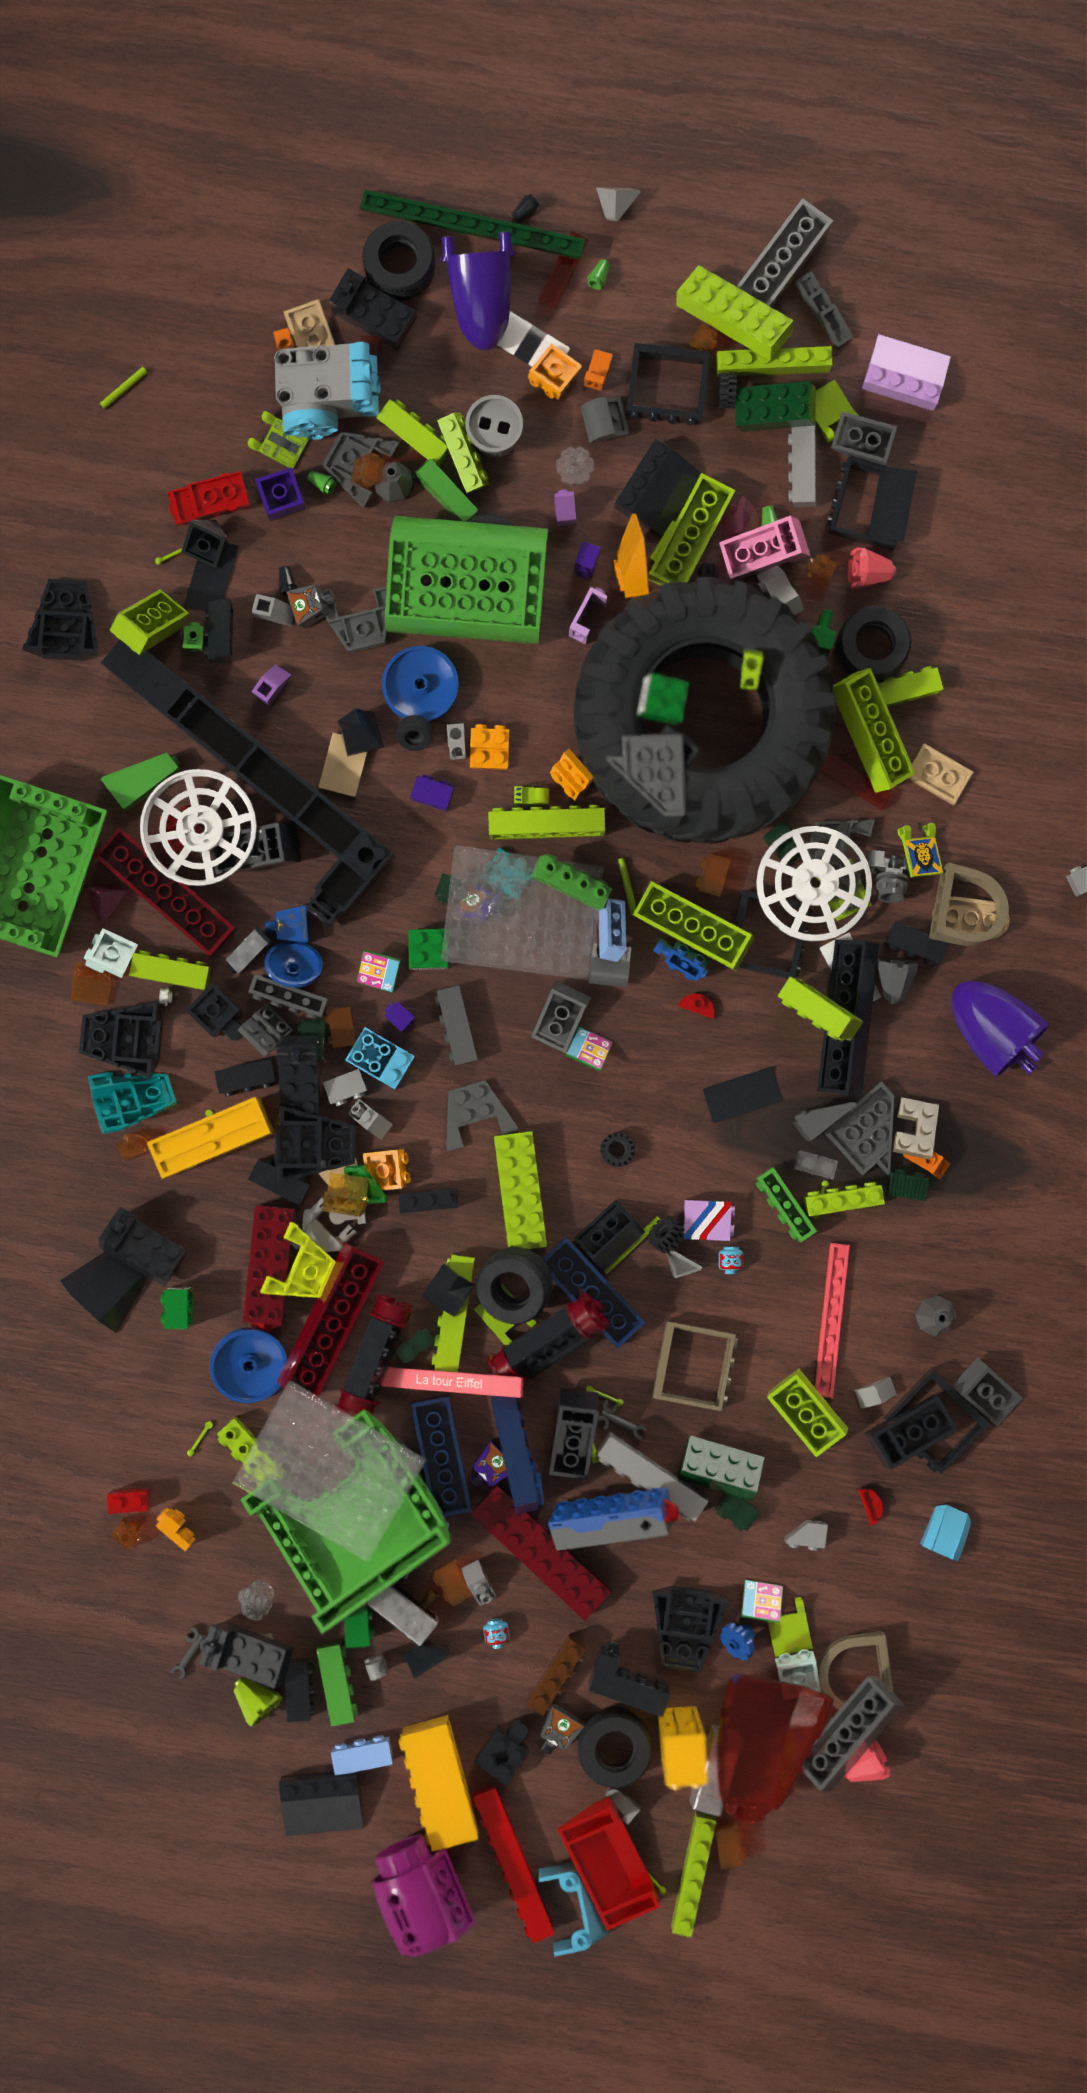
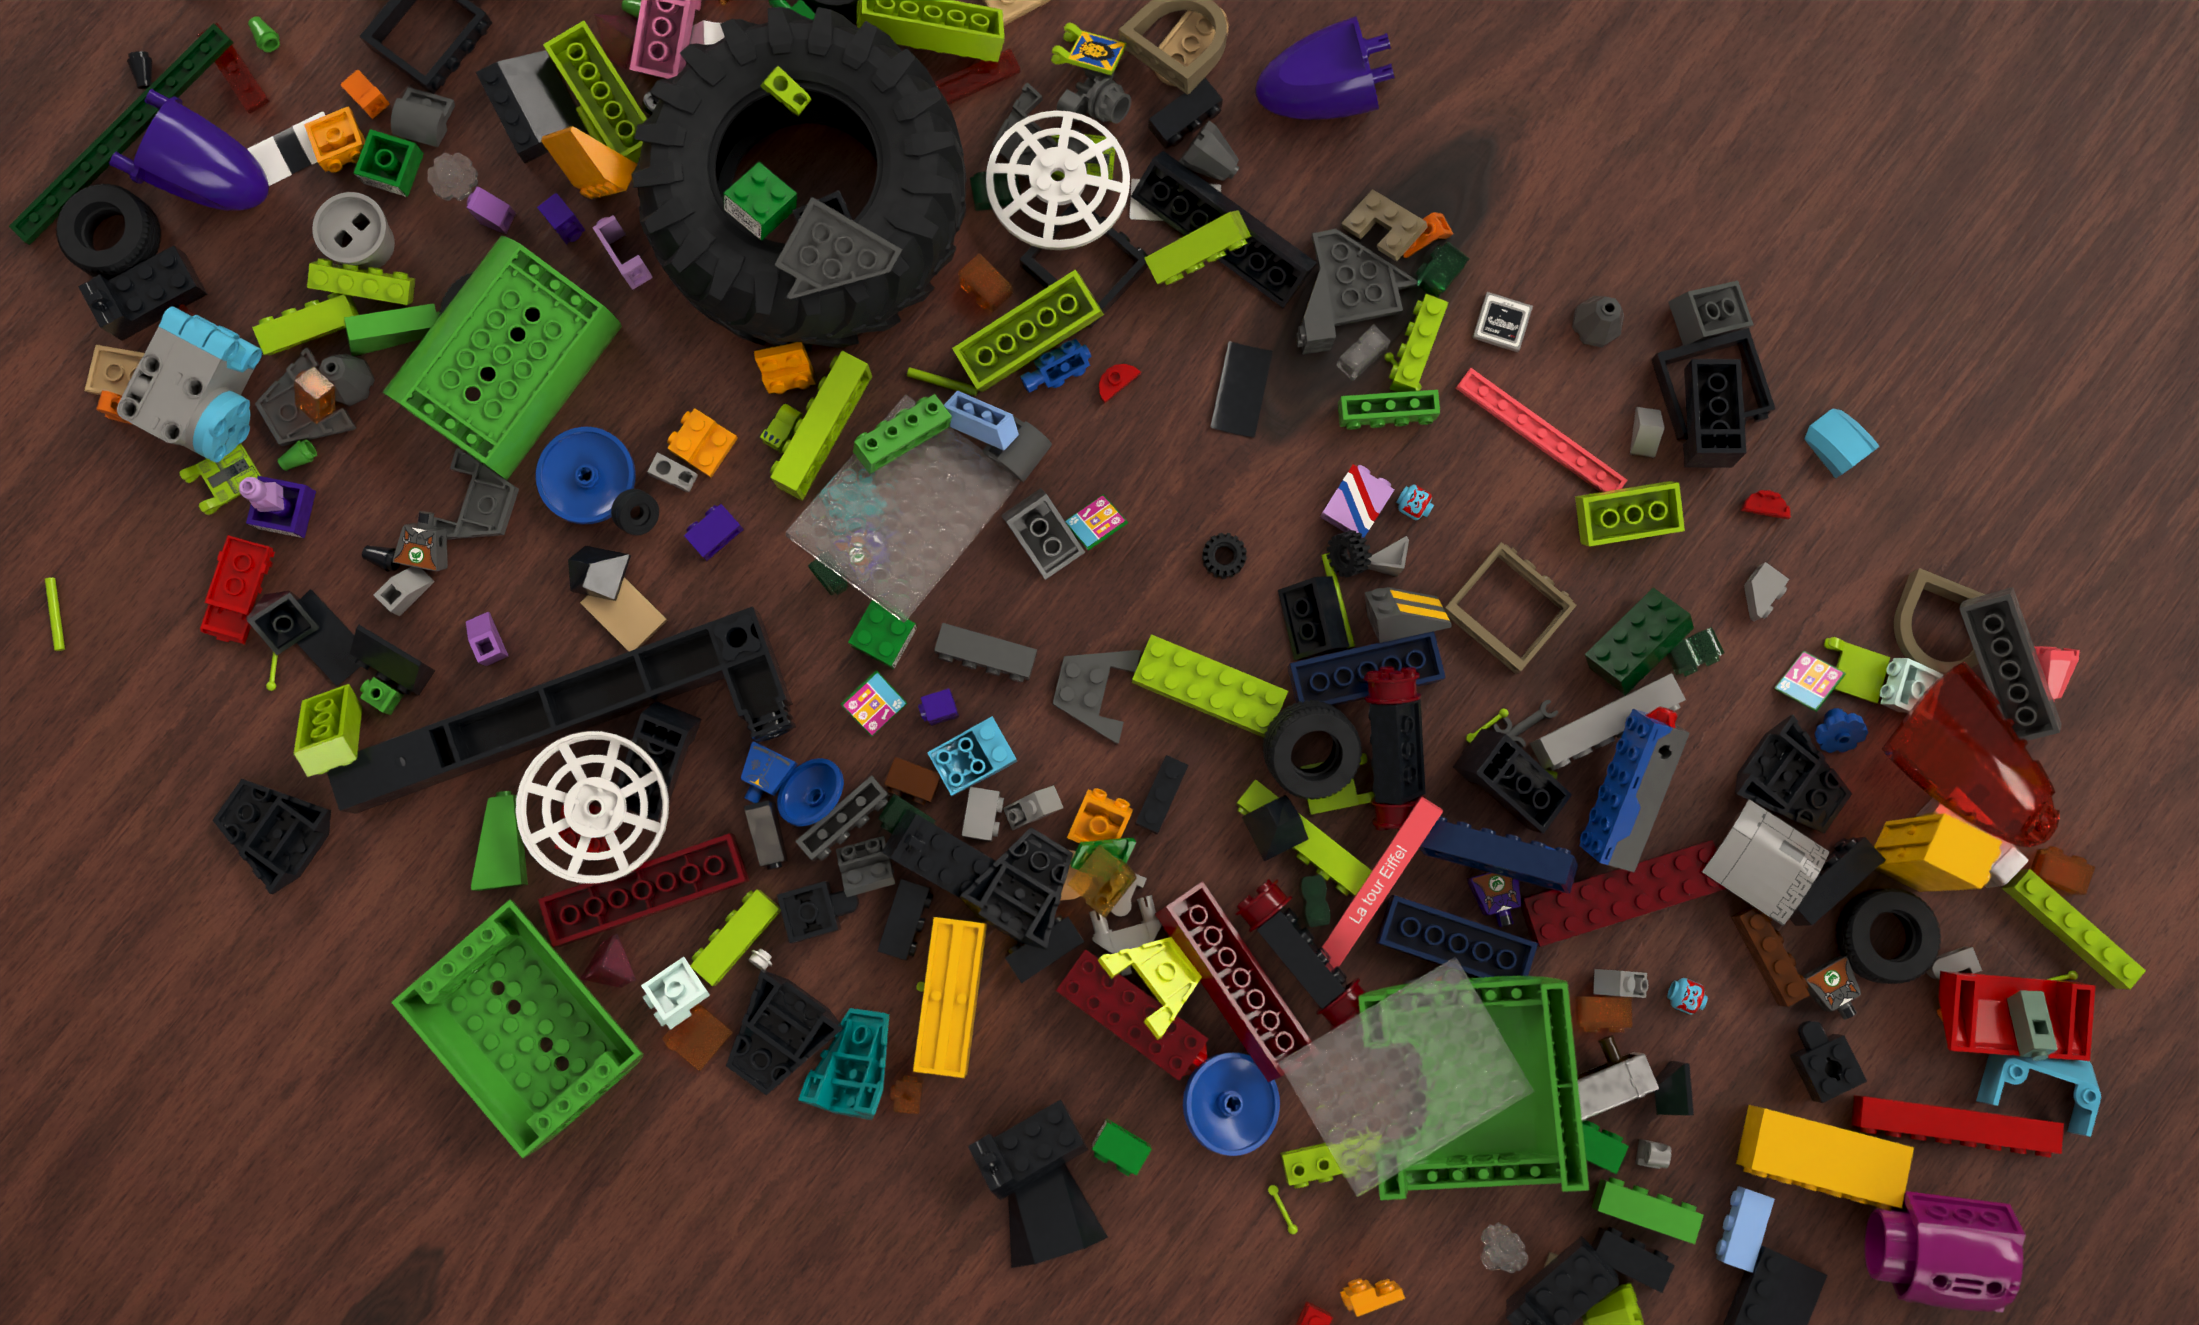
camera: 60 degrees left, 5 degrees down
(279, 481) = (262, 495): none -> lavender piece
(558, 418) = (388, 163): none -> green brick
(607, 1877) = (2032, 1024): none -> sand green brick
(616, 1637) = (1767, 862): none -> light grey sticker
(647, 1296) = (1403, 613): none -> dark grey slope
(896, 1249) = (1502, 322): none -> tile

